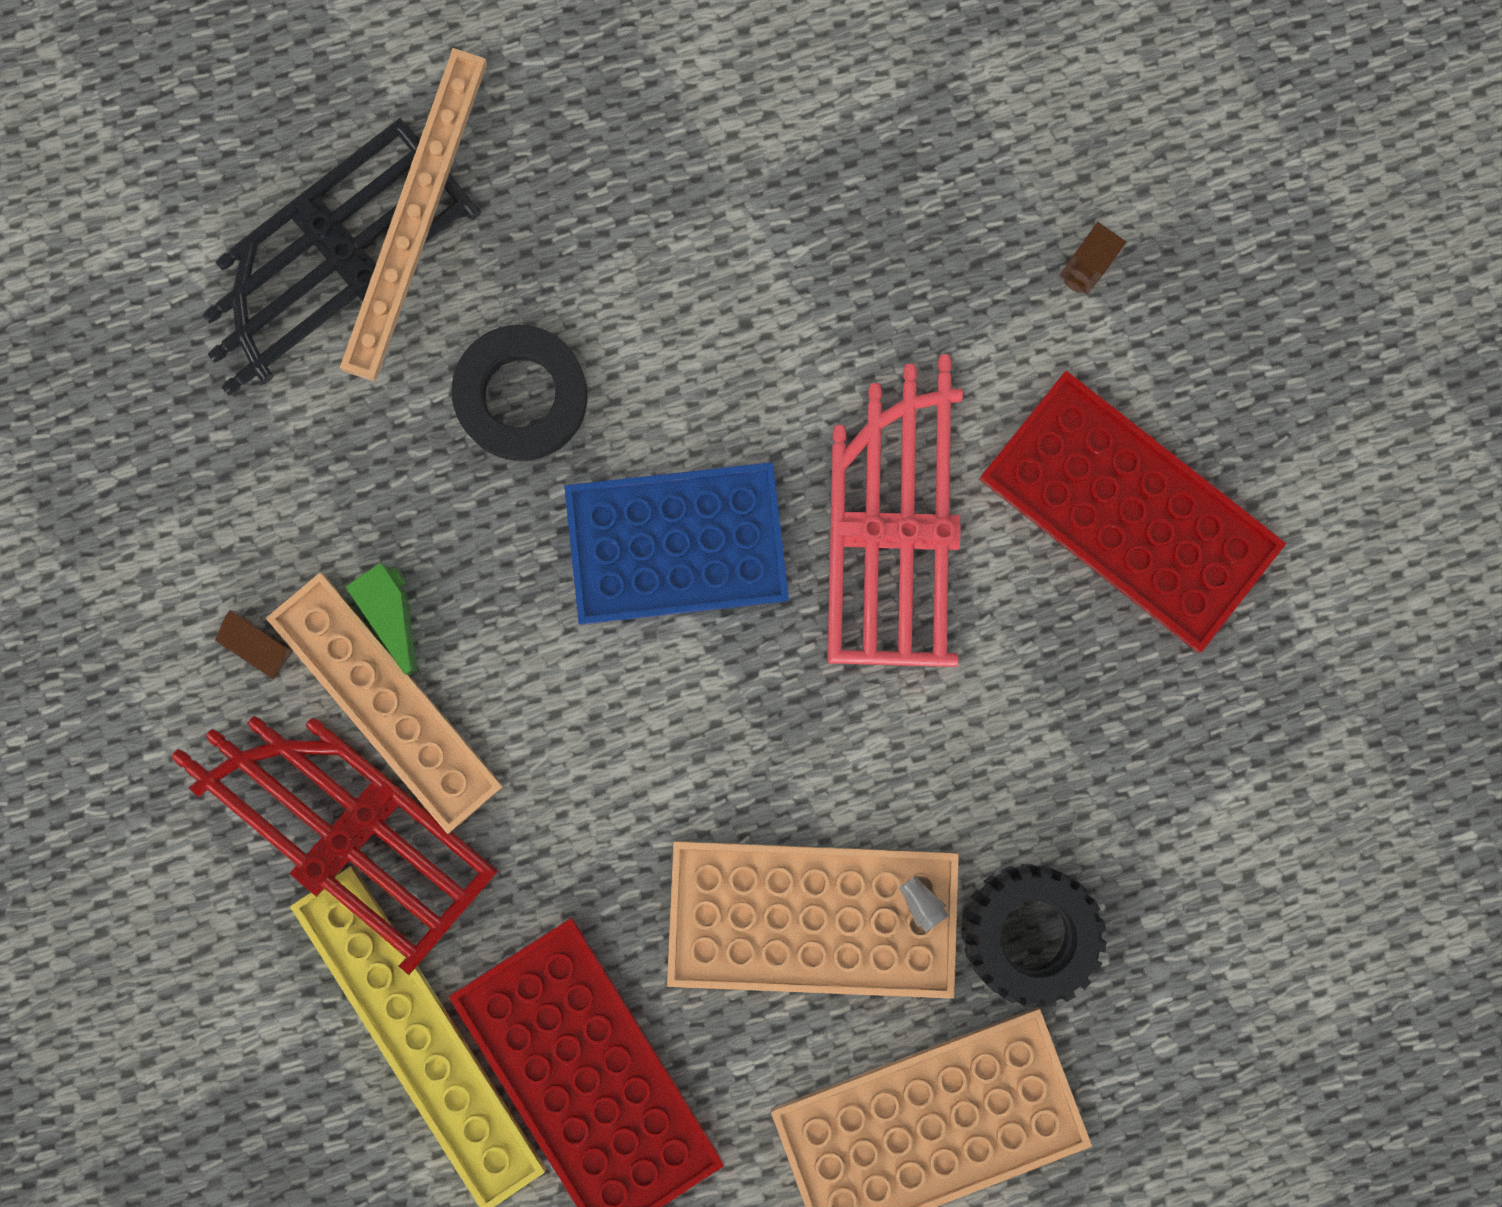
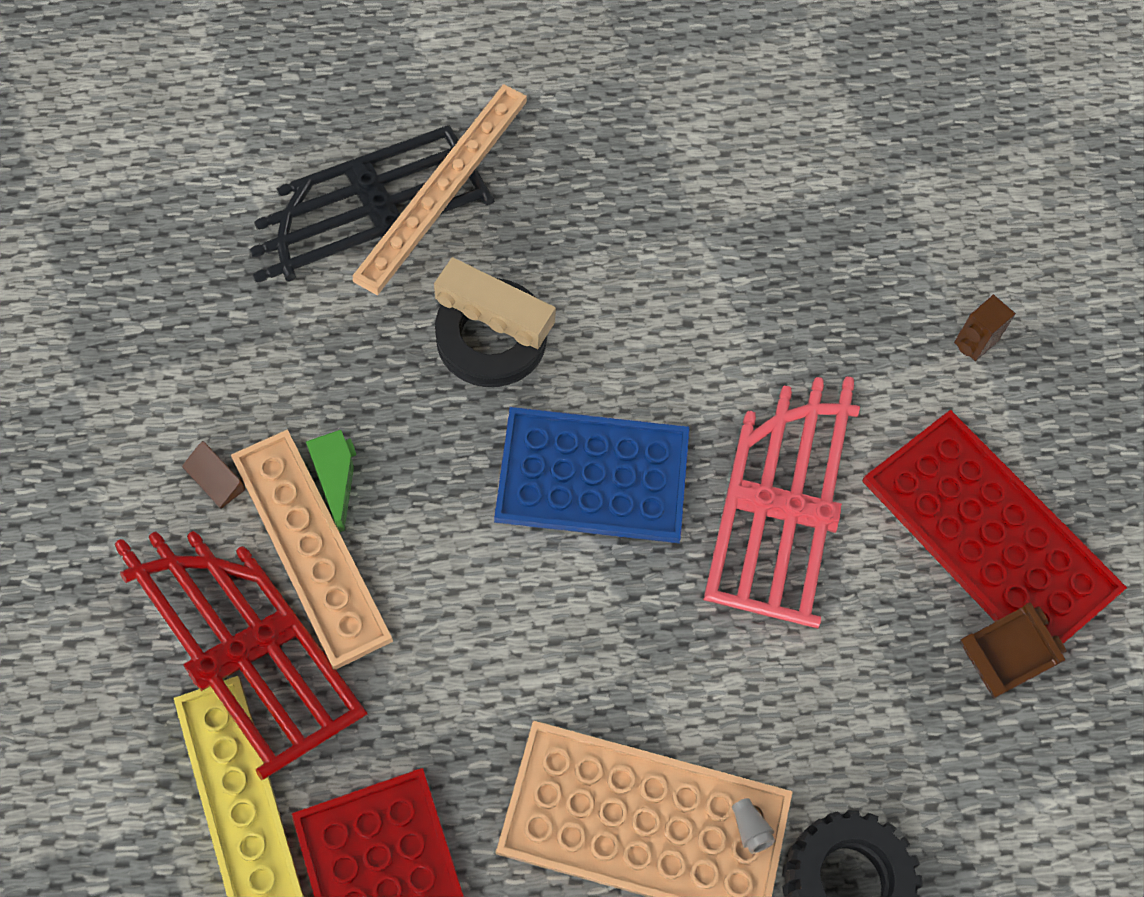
camera: 15 degrees right, 20 degrees down
(514, 365) = (494, 303): none -> tan brick
(1168, 647) = (1013, 649): none -> reddish brown panel

